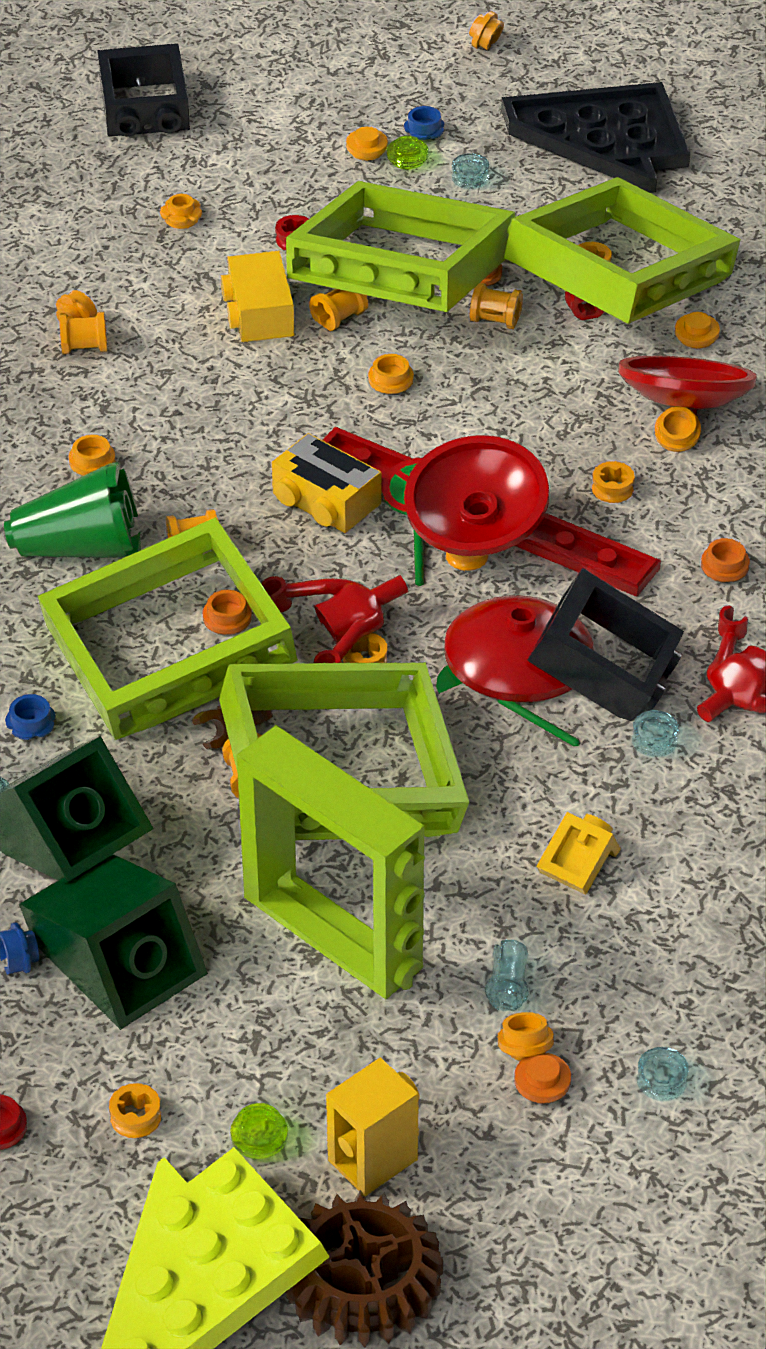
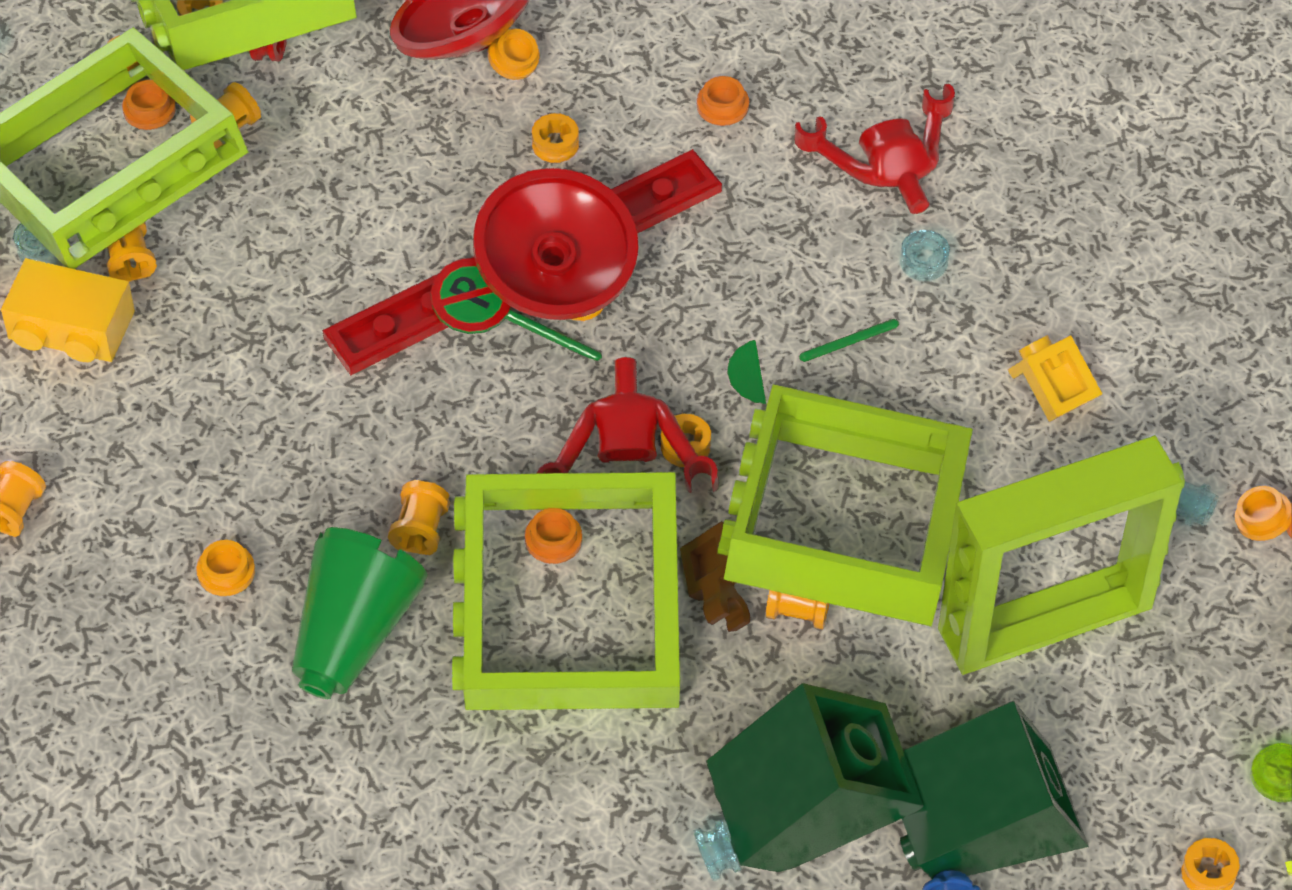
camera: 65 degrees left, 10 degrees up
(34, 708) = (615, 757): blue plate -> none
(326, 483) = (419, 370): yellow brick -> none
(390, 374) = (269, 250): light orange plate -> none
(491, 647) = (744, 314): red dish -> none
(591, 672) = (808, 270): black window -> none

